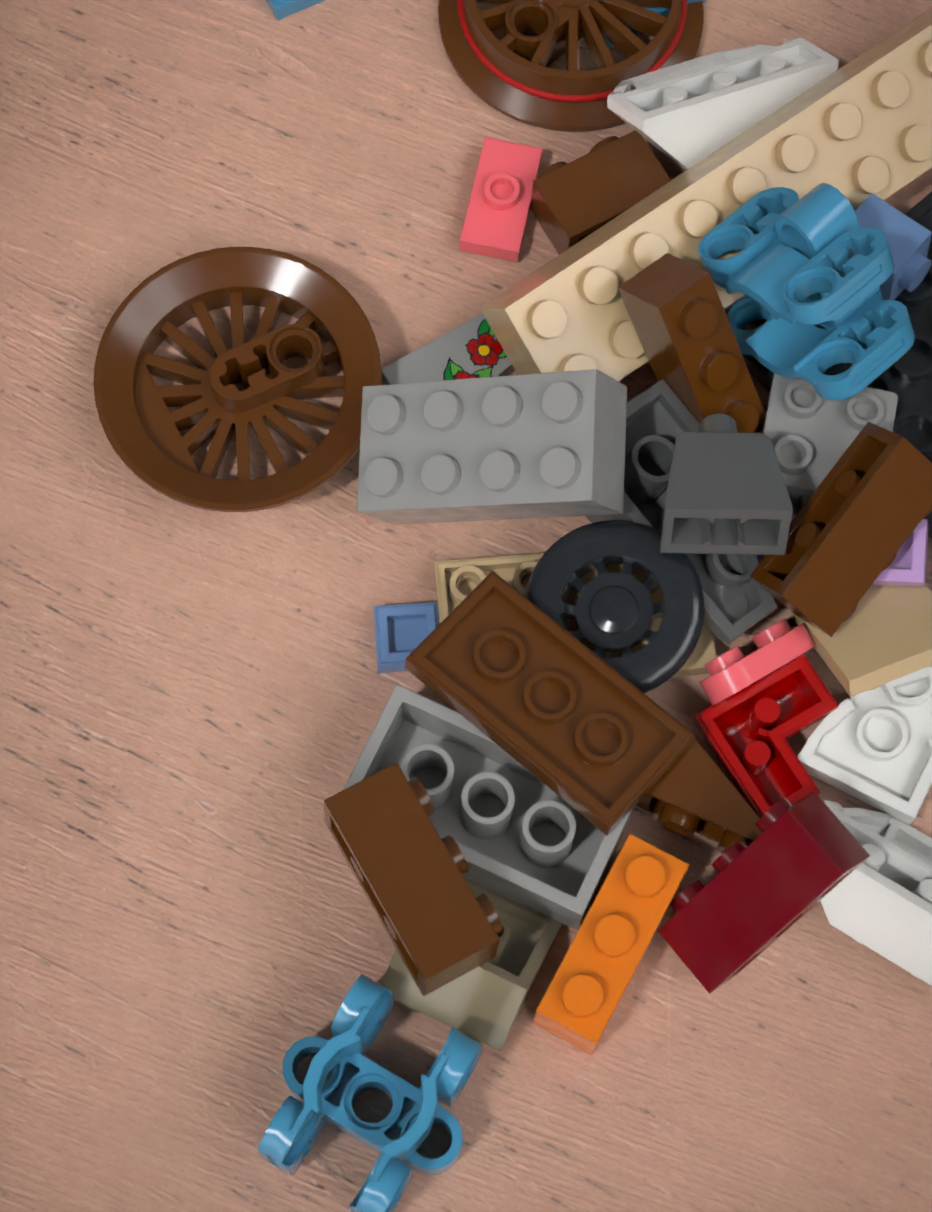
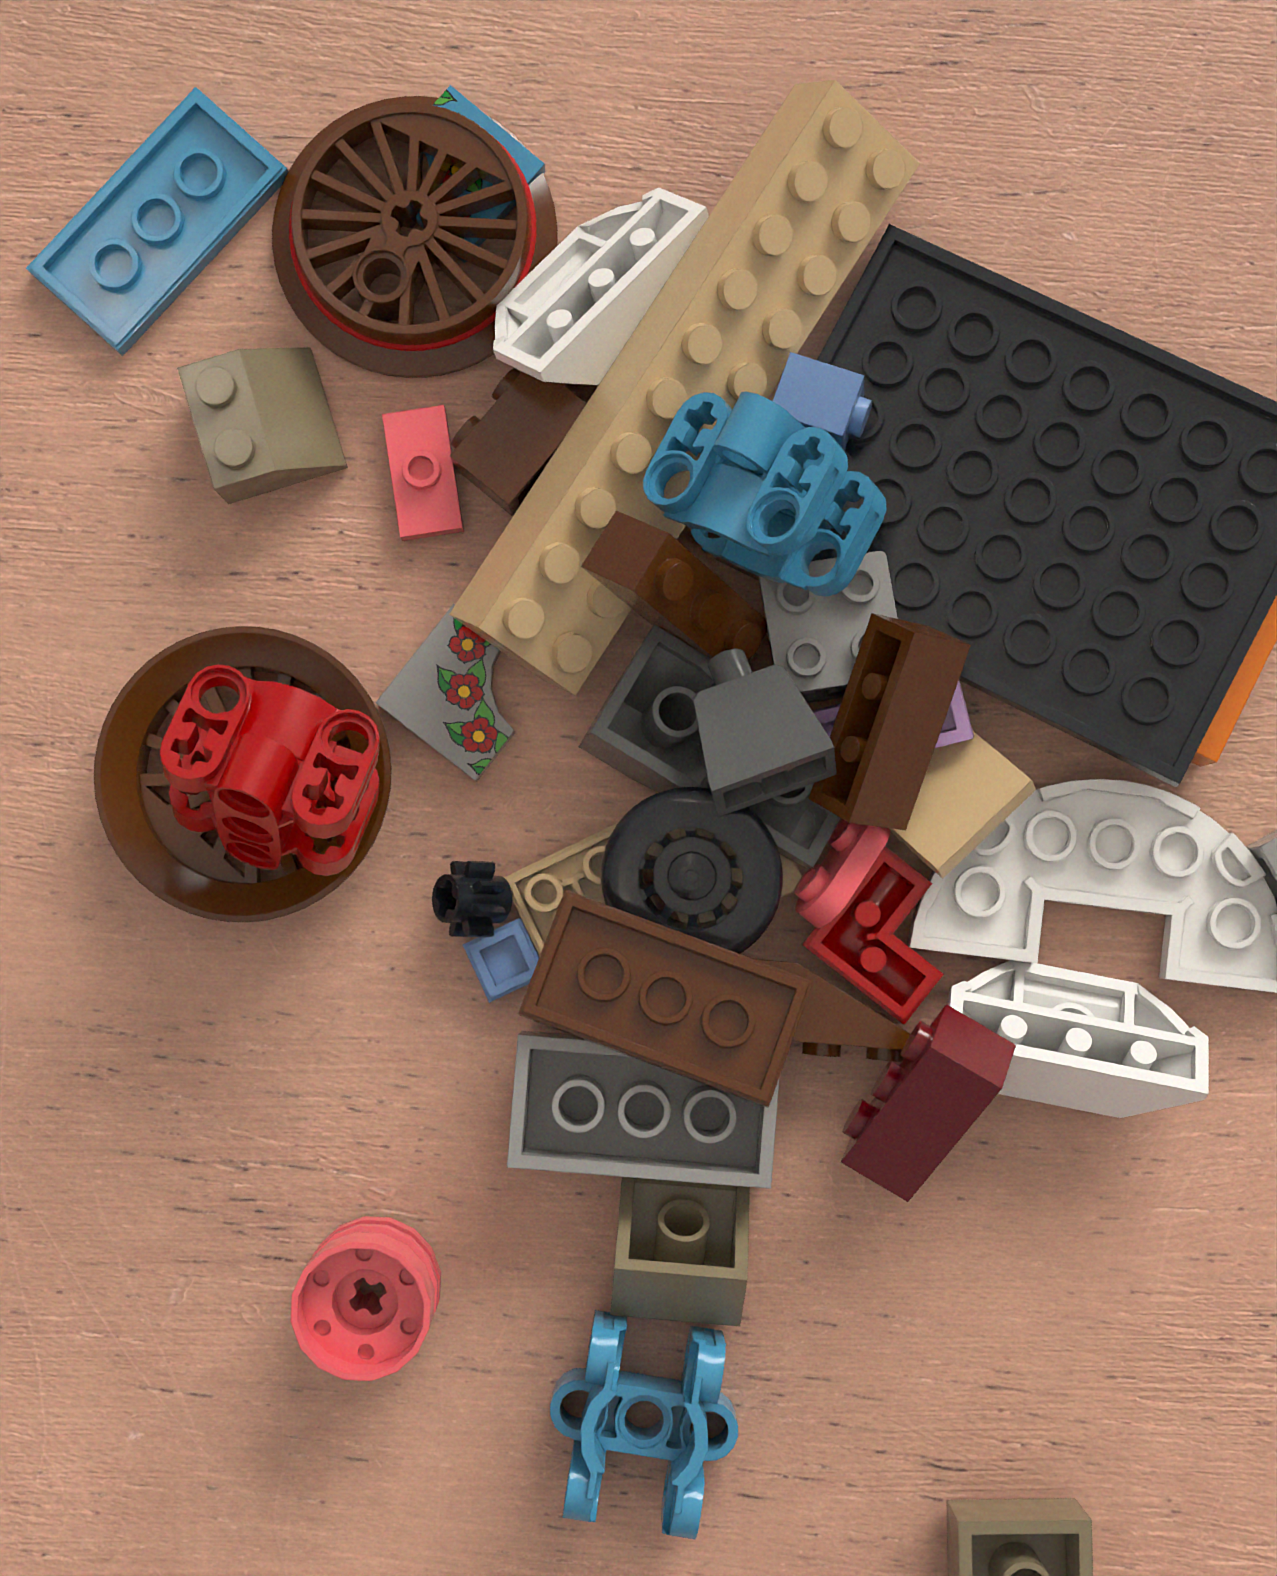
camera: 20 degrees left, 15 degrees up
(124, 856) = (356, 1332): none -> coral wheel
(268, 360) = (271, 772): none -> red piece
(377, 104) = (261, 420): none -> dark tan slope
(399, 564) = (471, 899): none -> black gear
(413, 877) = (608, 1228): reddish brown brick -> none
(493, 448) = (521, 769): light grey brick -> none
(610, 944) = (803, 1191): orange brick -> none

